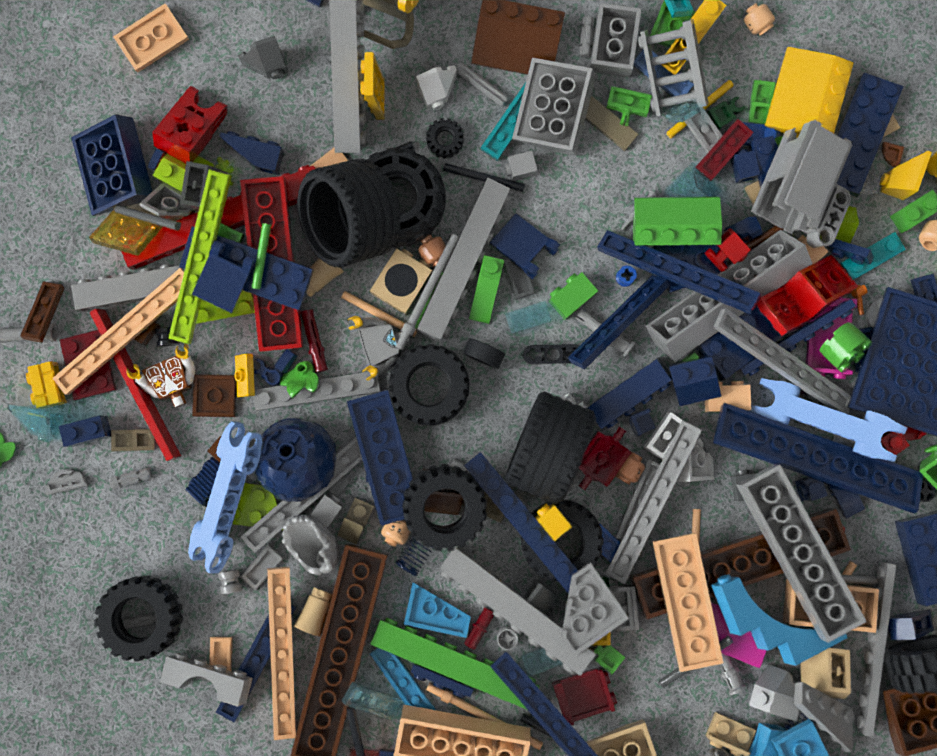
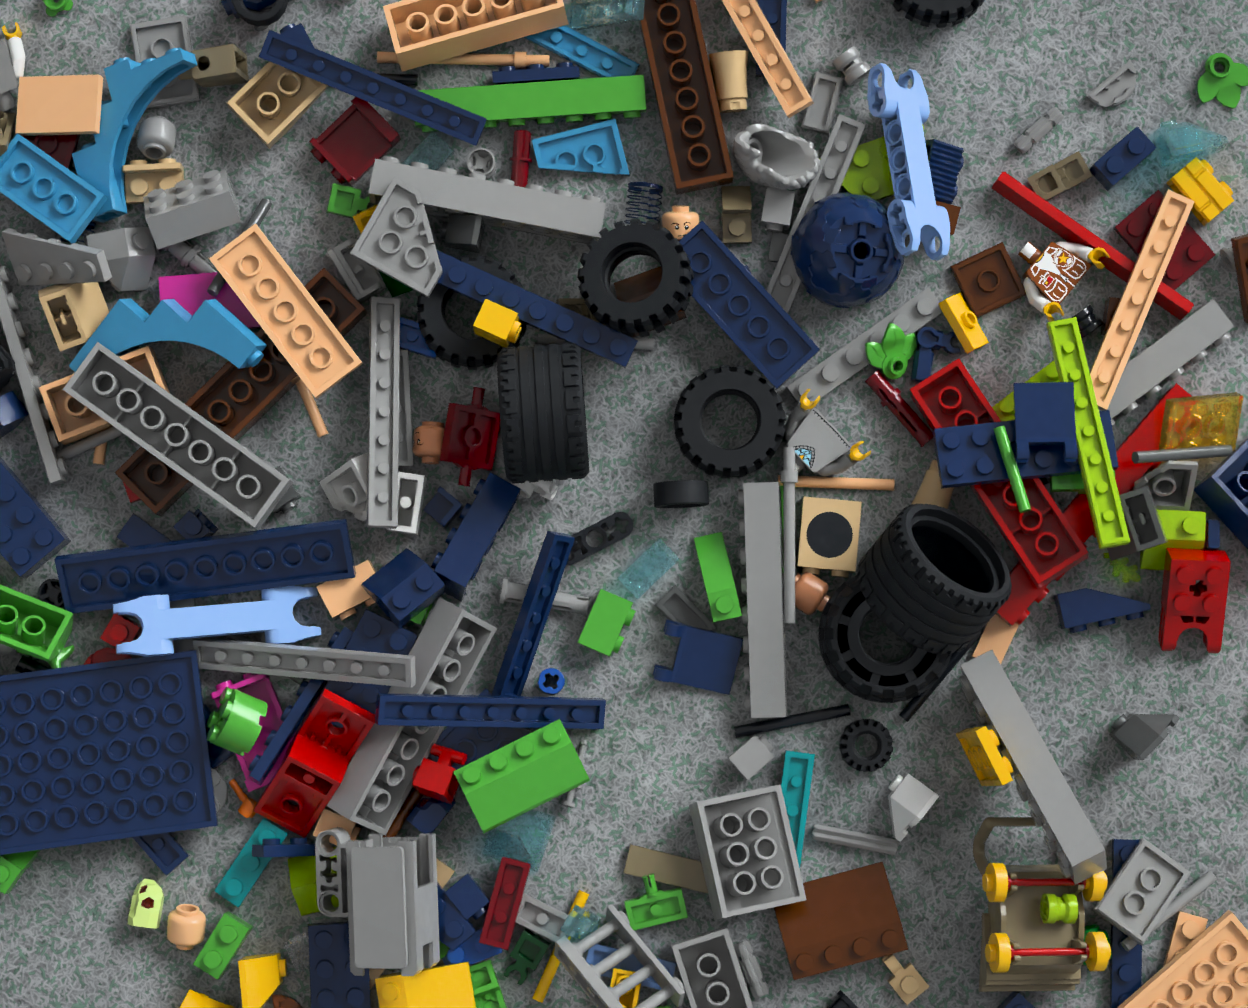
camera: 155 degrees right, 0 degrees up
(717, 703) = (191, 208): none -> light grey brick

